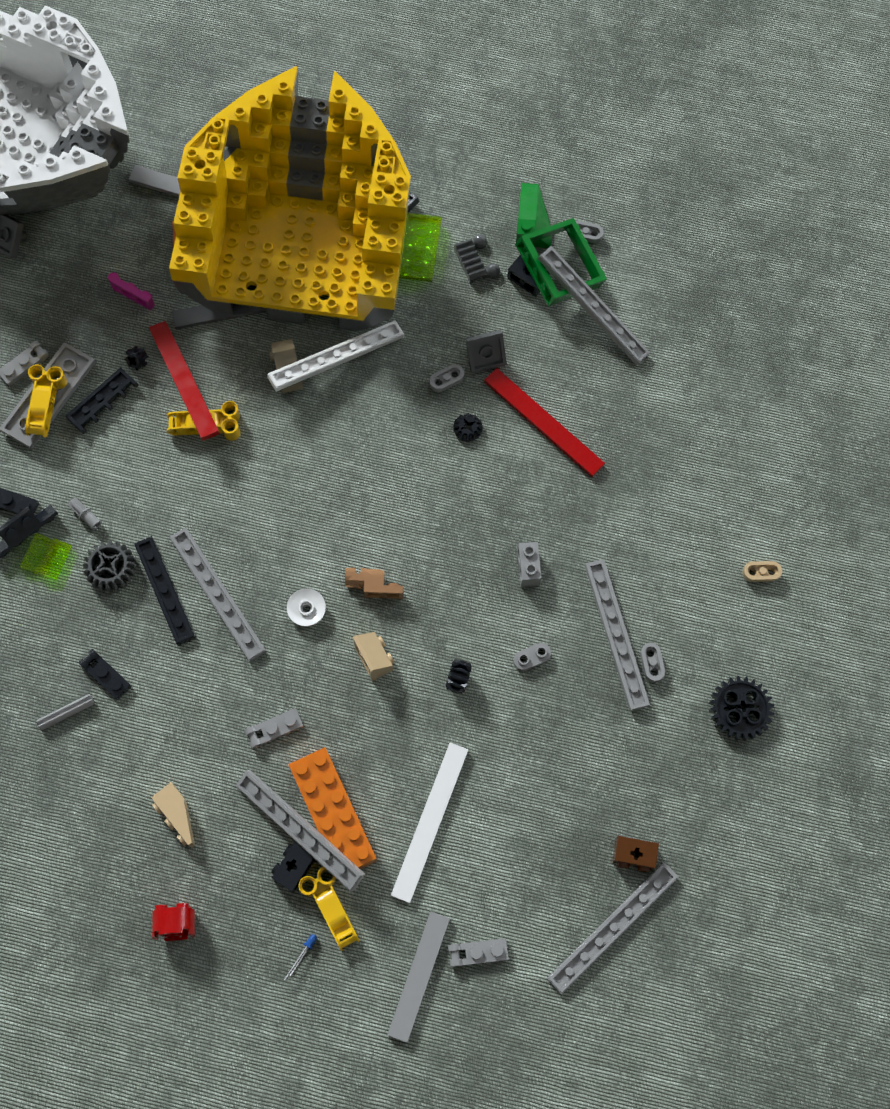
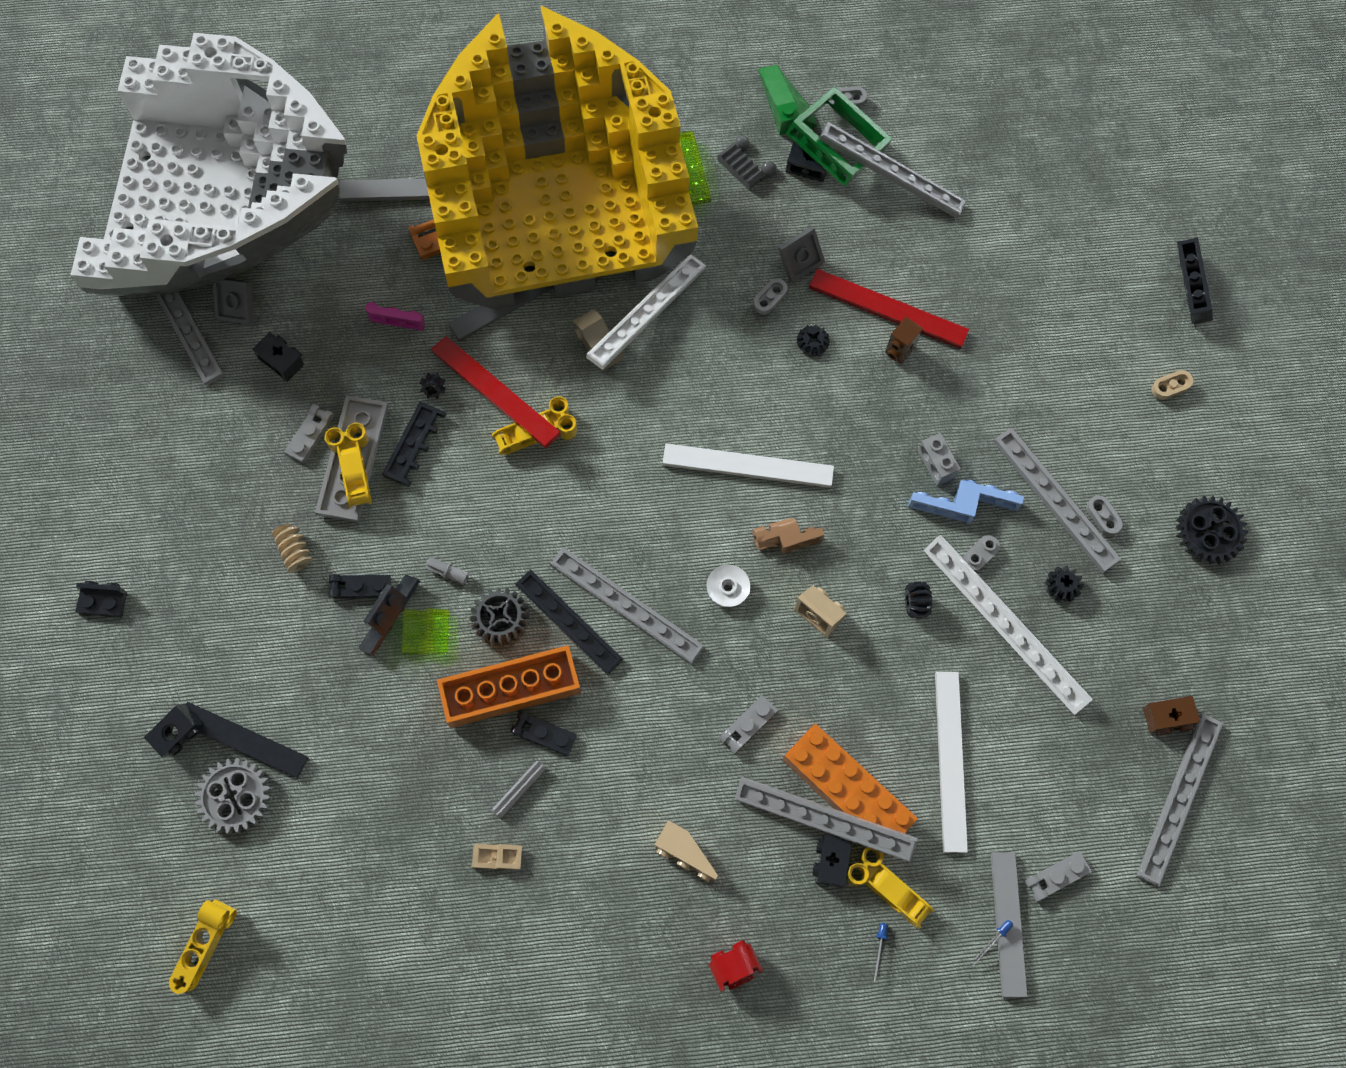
camera: 20 degrees left, 0 degrees up
(24, 292) = (278, 356): none -> black brick
(24, 760) = (497, 856): none -> tan slope
(90, 625) = (508, 686): none -> orange brick
(367, 513) = (748, 465): none -> white tile
(408, 979) = (1004, 929): none -> piece
(527, 725) = (1008, 625): none -> white plate
(537, 607) = (966, 501): none -> light blue bracket
(540, 453) = (903, 340): none -> reddish brown brick
(598, 711) = (1057, 587): none -> black gear
(820, 488) = (1195, 281): none -> black brick

